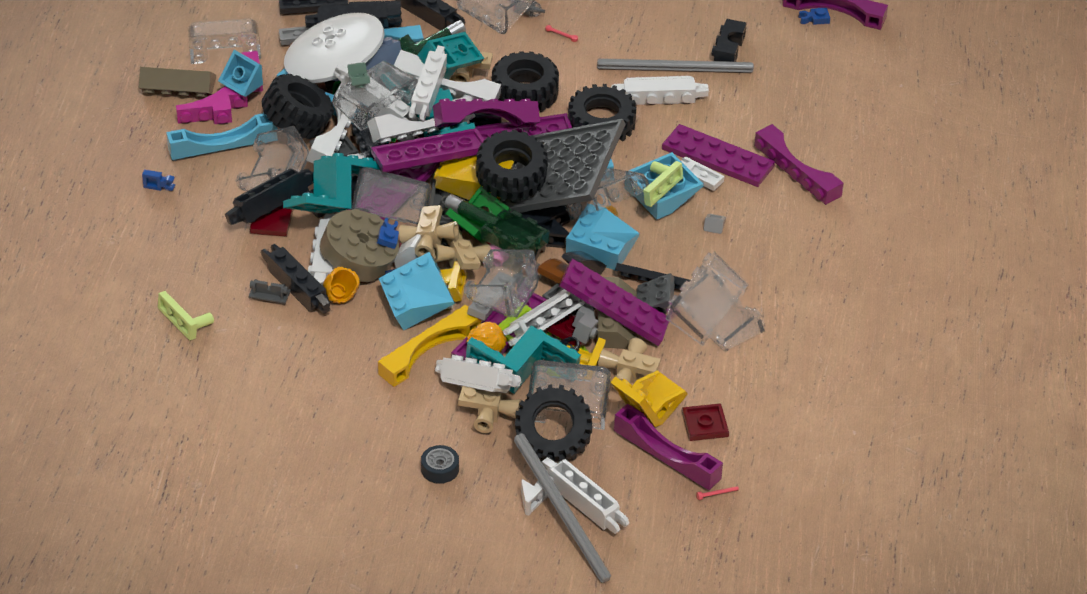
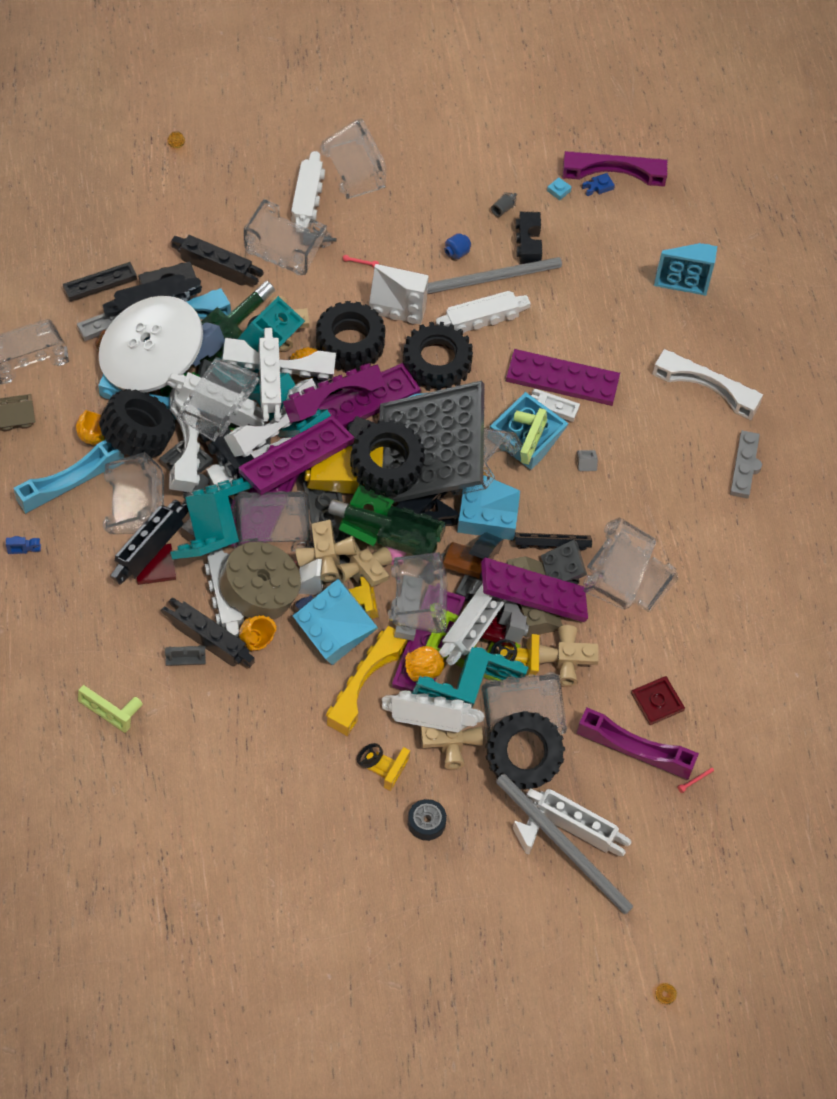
camera: 20 degrees left, 15 degrees up
(216, 106) = (61, 417): dark pink arch -> none
(242, 74) = (65, 397): medium azure slope -> none
(252, 104) = (89, 429): none -> light orange hair
(358, 74) = (200, 388): sand green bracket -> none
(388, 234) = (286, 565): blue plate -> none
(420, 419) = (383, 765): none -> yellow piece
(583, 56) = (399, 294): none -> white slope
(652, 395) = (605, 688): yellow bracket -> none
(657, 35) = (457, 246): none -> blue head
(716, 13) = (504, 203): none -> dark grey piece
(775, 12) = (559, 188): none -> medium azure plate
(821, 184) = (671, 390): magenta arch -> none
(870, 87) = (686, 268): none -> medium azure slope
(871, 256) = (745, 464): none -> light grey hinge
(886, 202) = (676, 368): none -> white arch

